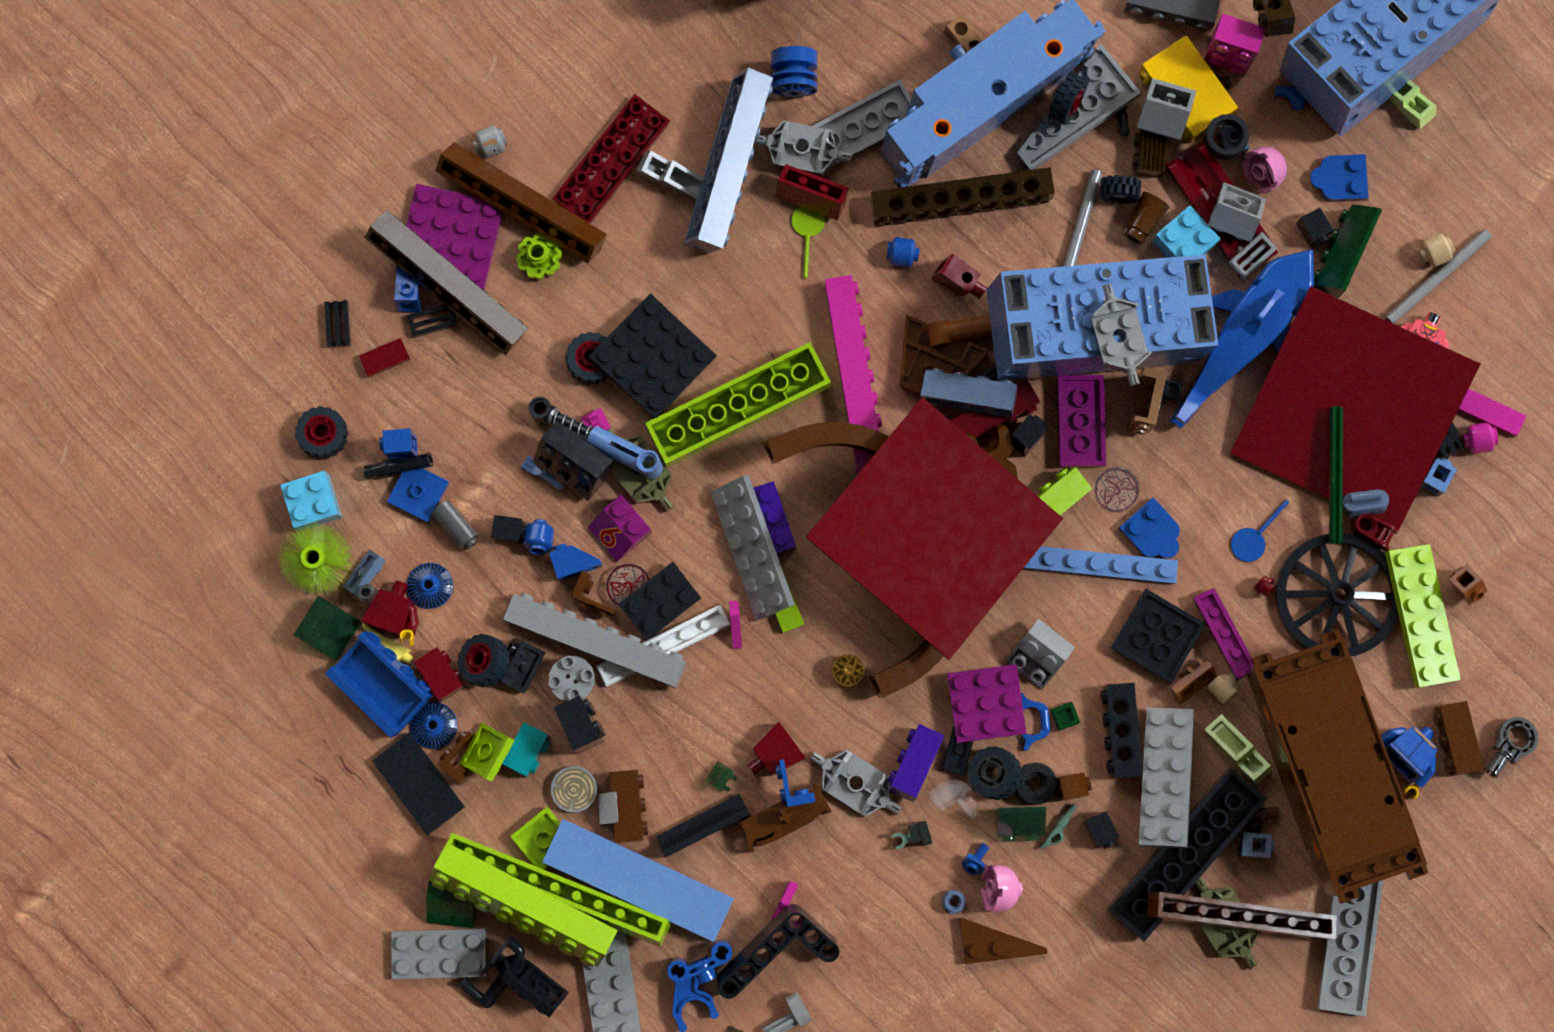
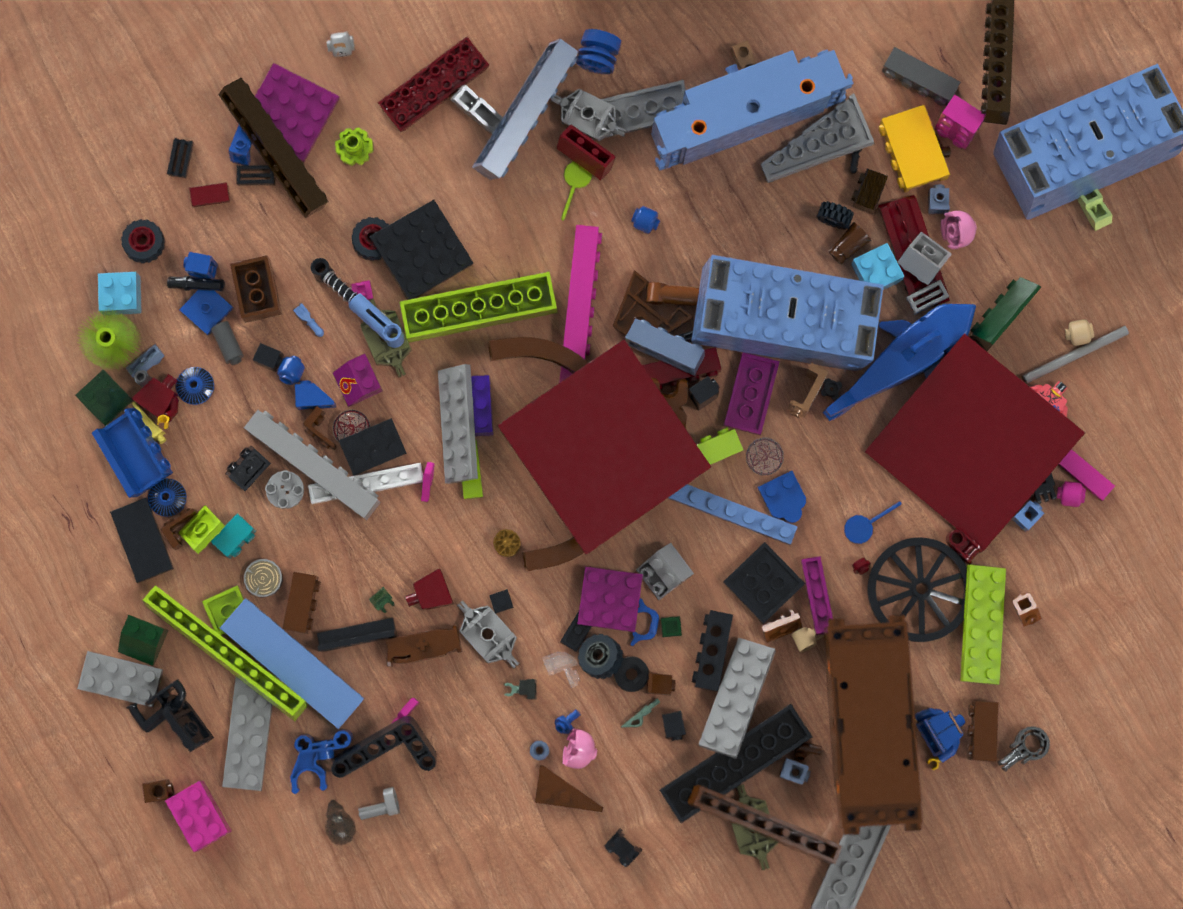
camera: 20 degrees right, 0 degrees up
(439, 674) = (181, 457): dark red brick -> none
(471, 453) = (256, 289): none -> reddish brown brick
(483, 660) = (219, 456): black wheel -> none
(520, 202) = (351, 99): reddish brown brick -> none
(522, 905) = (193, 657): lime brick -> none
(572, 461) = (333, 316): black brick -> none
(579, 724) = (280, 527): black brick -> none
(608, 808) = (284, 600): white sticker -> none
(801, 796) = (439, 632): blue bracket -> none
(860, 740) = (501, 601): none -> black plate
(915, 762) = (539, 630): dark purple brick -> none
(951, 273) = (679, 245): dark red torso -> none
(1020, 822) = (609, 701): clear green slope -> none
(1039, 178) = (716, 182): dark brown brick -> none
(1068, 98) = (812, 130): black wheel -> none
(1083, 218) = (799, 231): light grey piece -> none
(1083, 989) = (622, 848): none -> black piece
(1122, 317) = (796, 315): light grey plate -> none
(1166, 109) = (889, 160): light grey slope -> none
(1230, 120) = (932, 181): black tyre -> none
(1238, 750) = (802, 692): yellowish green slope -> none
(1293, 96) = (998, 175): blue arm -> none
(1315, 227) = (985, 288): black brick -> none
(1335, 474) = (943, 491): dark green axle -> none
(1342, 178) = (1019, 253): blue plate -> none
(1365, 502) = (962, 521): sand blue piece -> none

